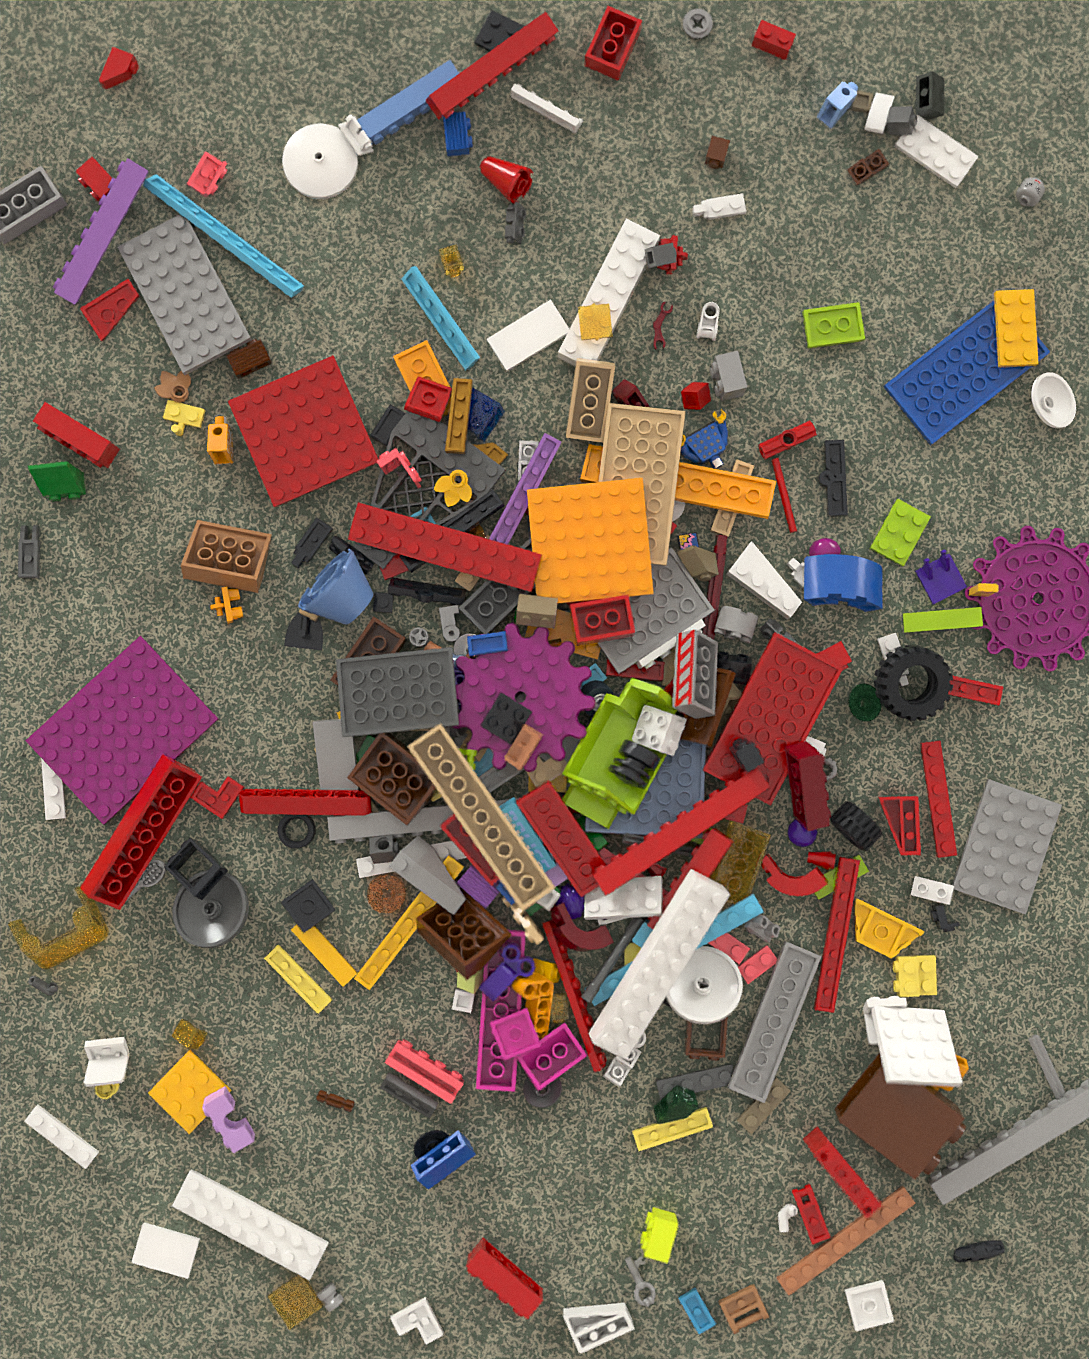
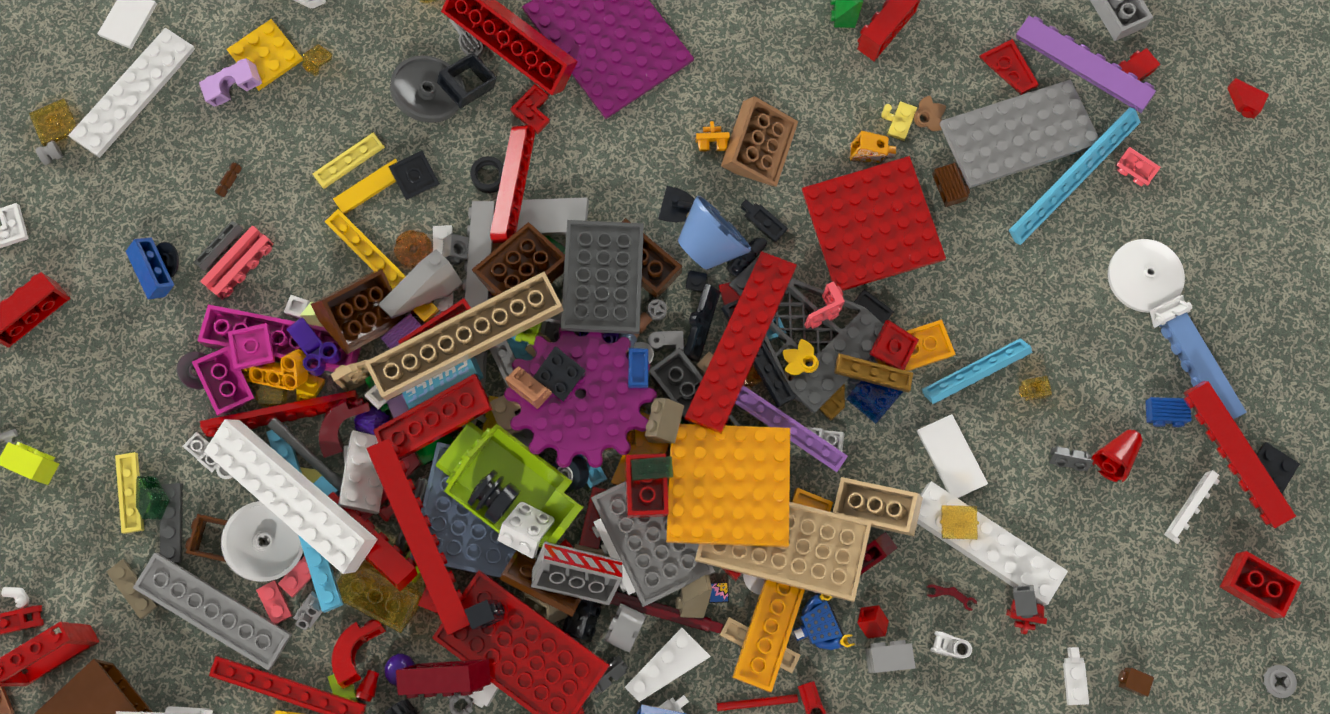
camera: 95 degrees right, 10 degrees down
(588, 614) = (652, 468): none -> clear green plate

